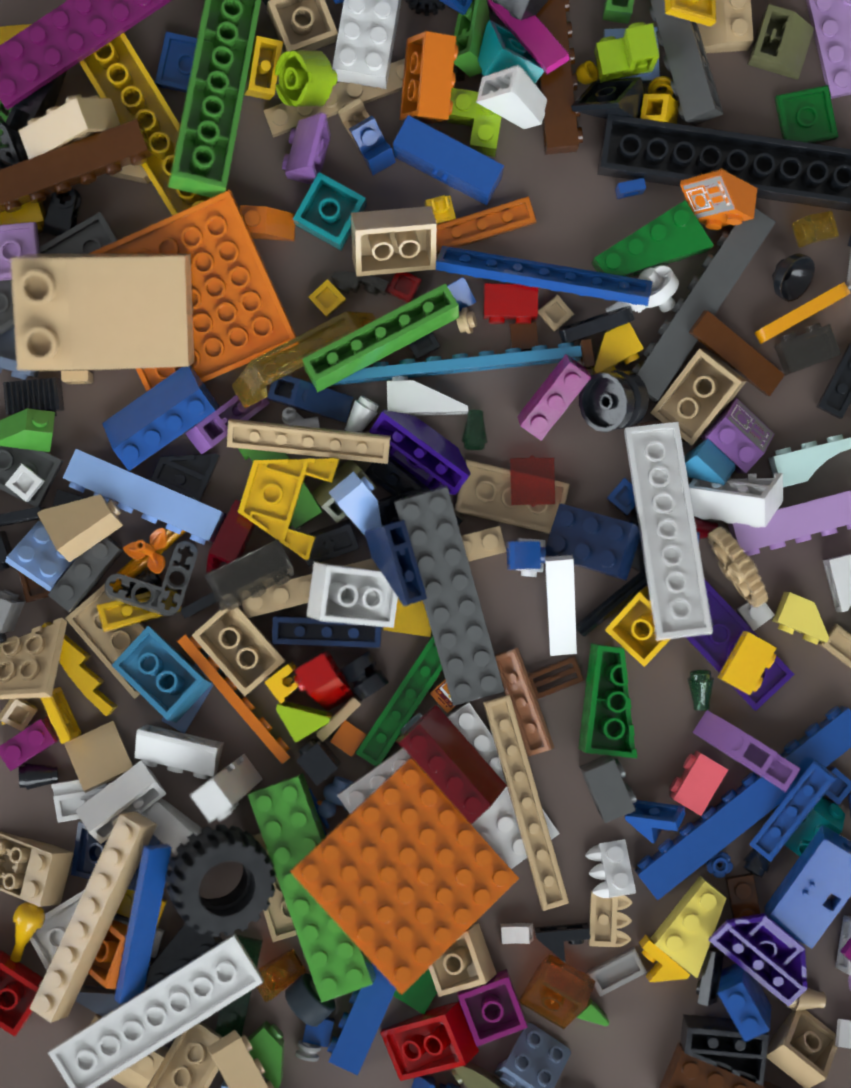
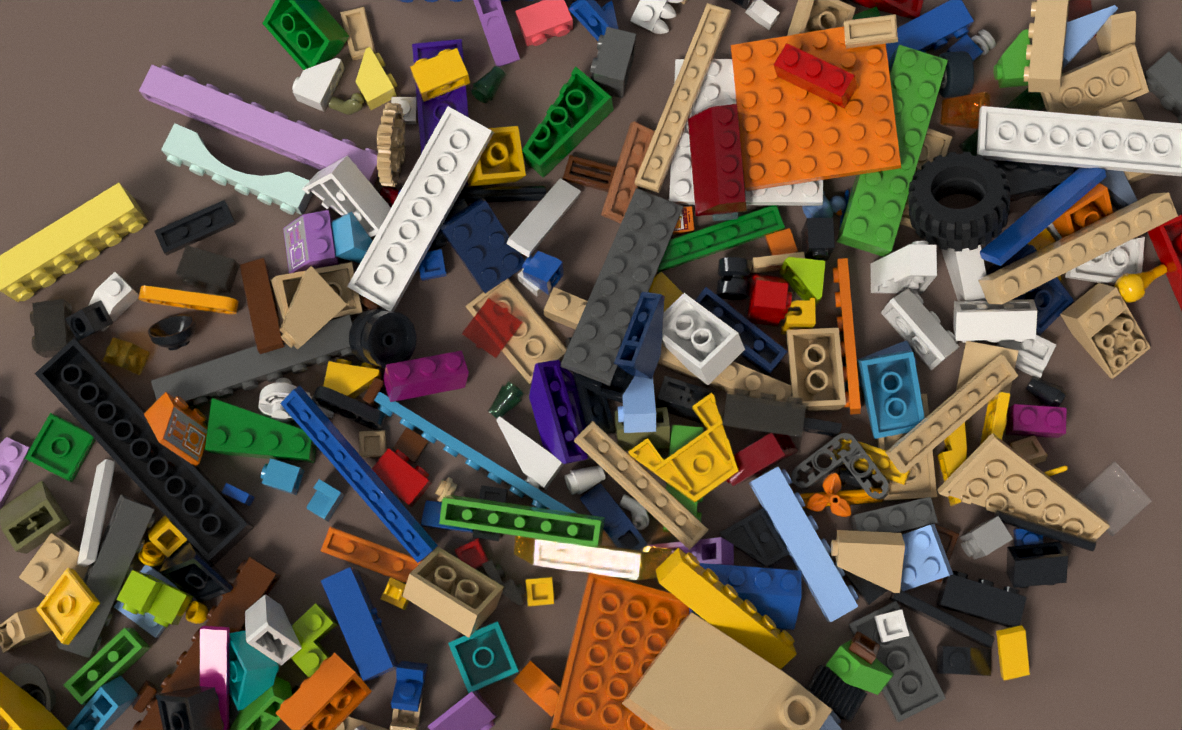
camera: 145 degrees left, 10 degrees down
(34, 448) = (864, 647): none -> reddish brown tile
(98, 693) = (951, 414): none -> tan plate
(163, 389) = (724, 609): none -> yellow brick
(403, 974) = (870, 31): none -> tan tile
(421, 897) = (815, 75): none -> red brick
(557, 238) = (325, 500): none -> dark azure panel
(606, 229) = (282, 476): none -> dark azure brick
(691, 375) = (310, 309): none -> tan slope
(731, 84) = (96, 513): none -> white tile
(806, 577) = (347, 107): none -> olive arm

